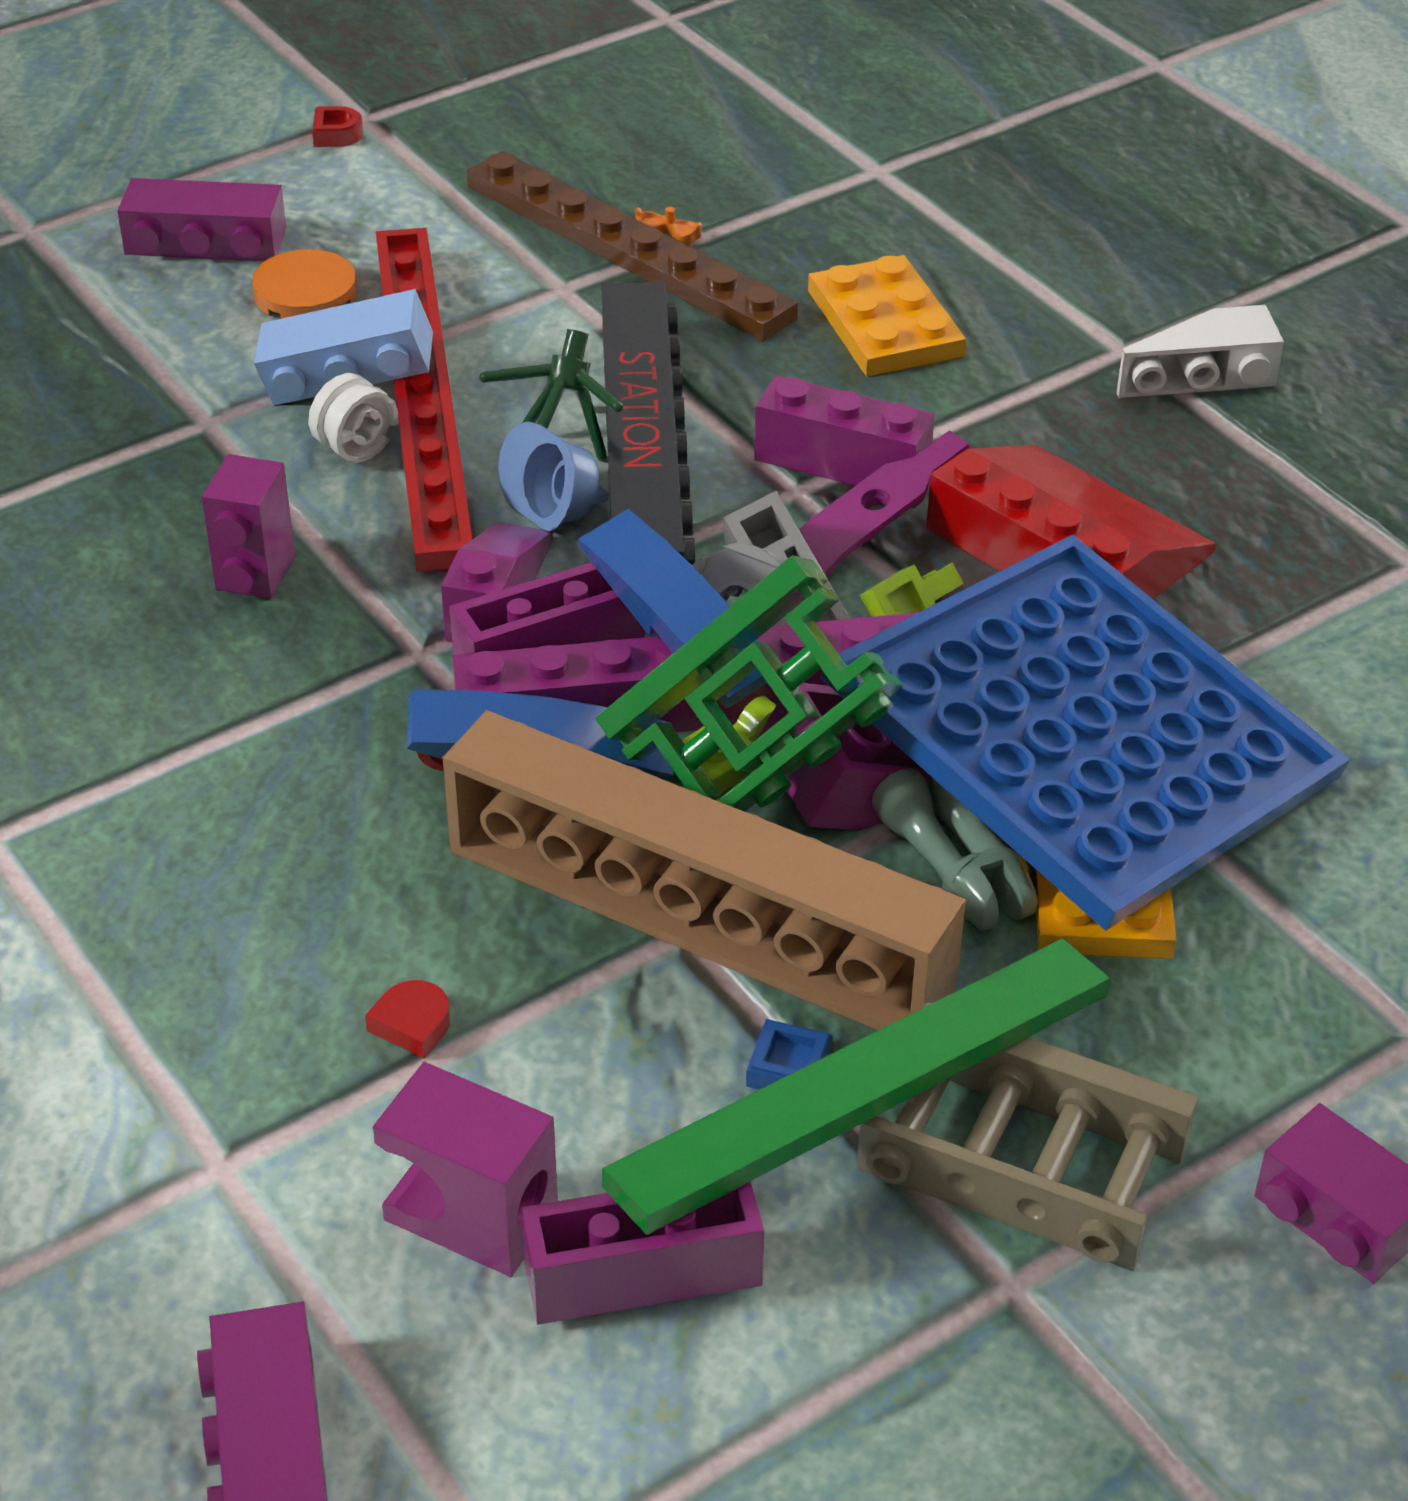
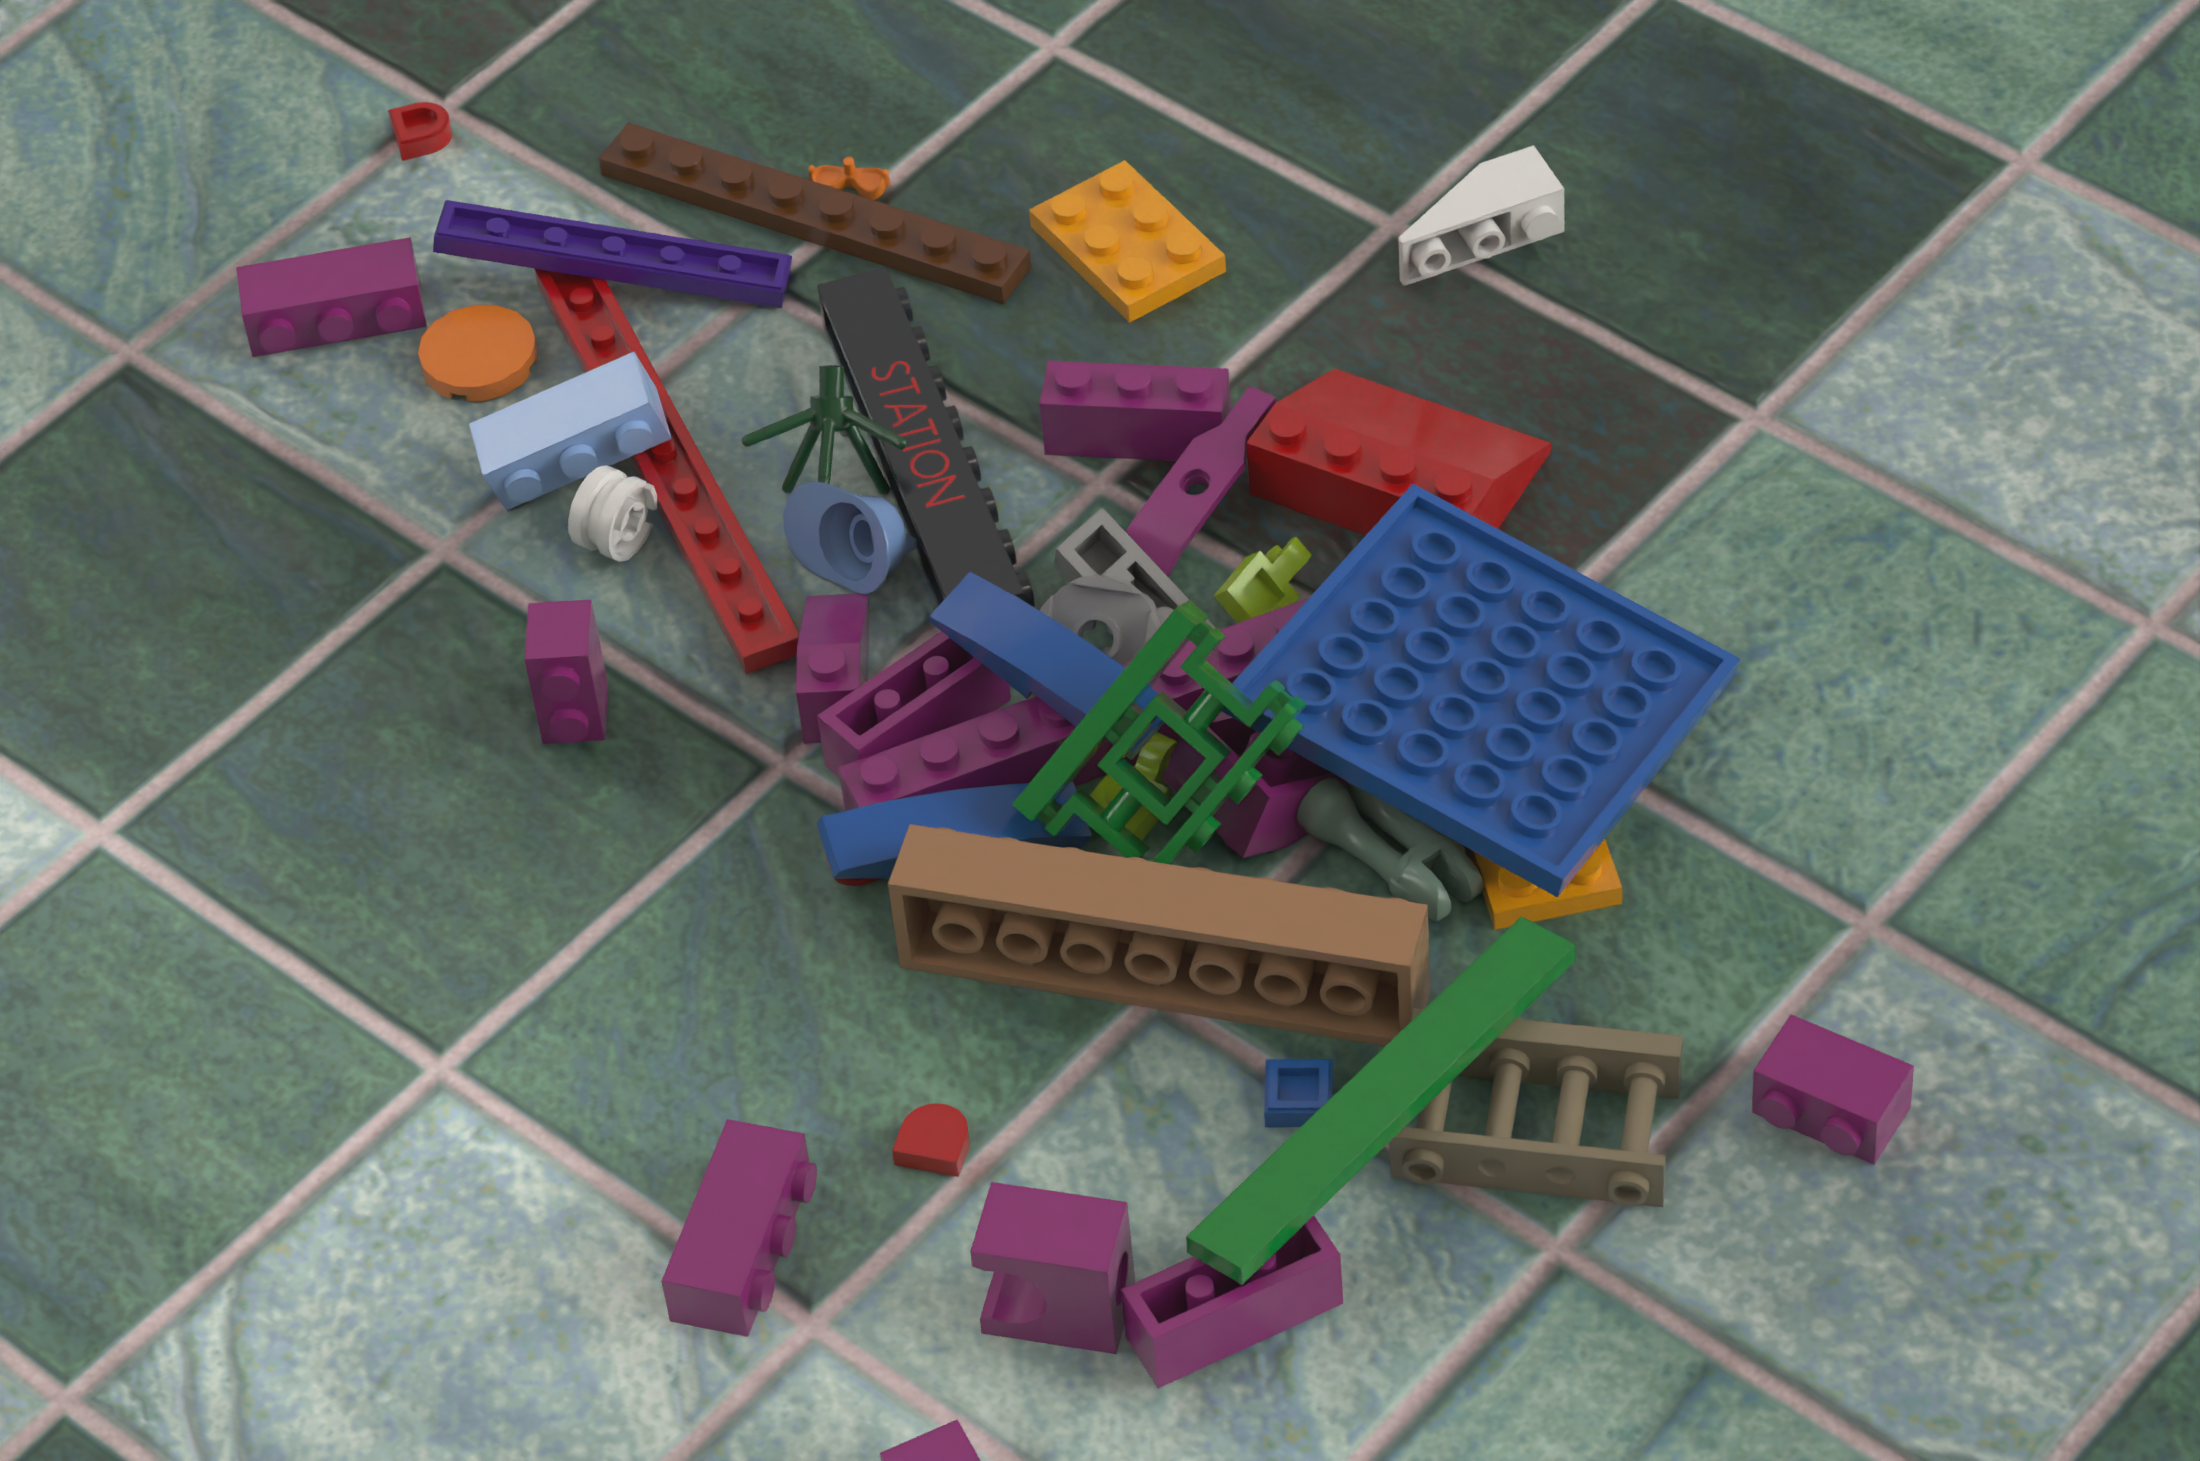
camera: 10 degrees left, 5 degrees up
(180, 1052) = (738, 1228): none -> magenta brick
(444, 232) = (612, 253): none -> dark purple tile

